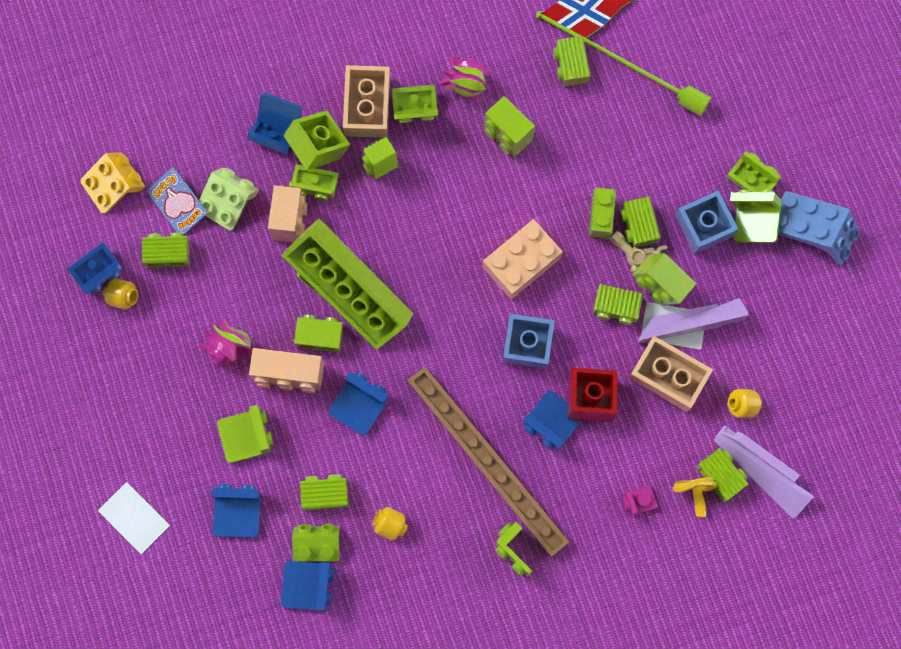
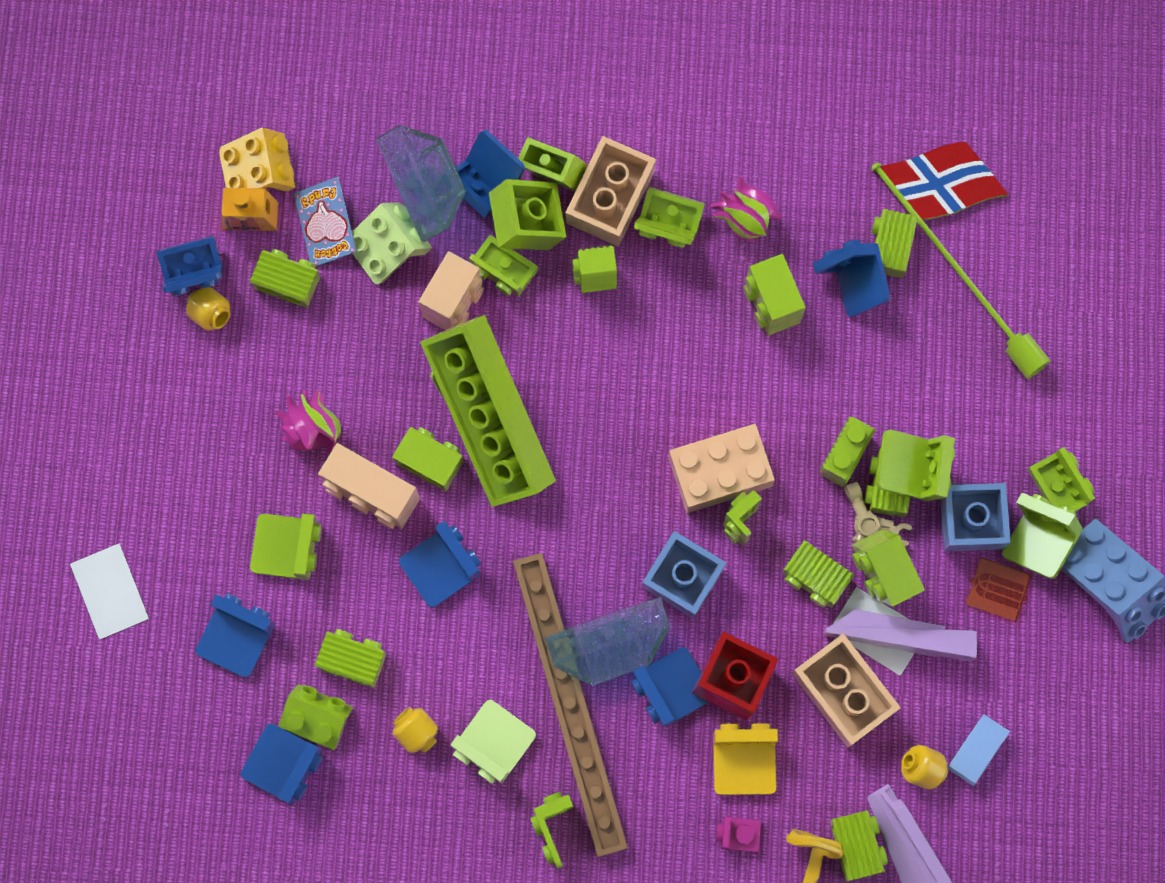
camera: 25 degrees right, 0 degrees up
(119, 214) = (246, 210): none -> light orange torso
(234, 143) = (424, 178): none -> clear light blue wedge
(319, 98) = (552, 164): none -> lime brick
(446, 509) = (493, 742): none -> yellowish green bracket
(498, 407) = (610, 643): none -> clear light blue wedge
(548, 294) = (739, 512): none -> lime bracket
(559, 91) = (859, 275): none -> blue bracket
(622, 449) = (744, 759): none -> yellow bracket
(654, 202) = (915, 465): none -> lime bracket
(741, 264) = (998, 589): none -> clear red piece
(775, 377) = (978, 750): none -> light blue slope

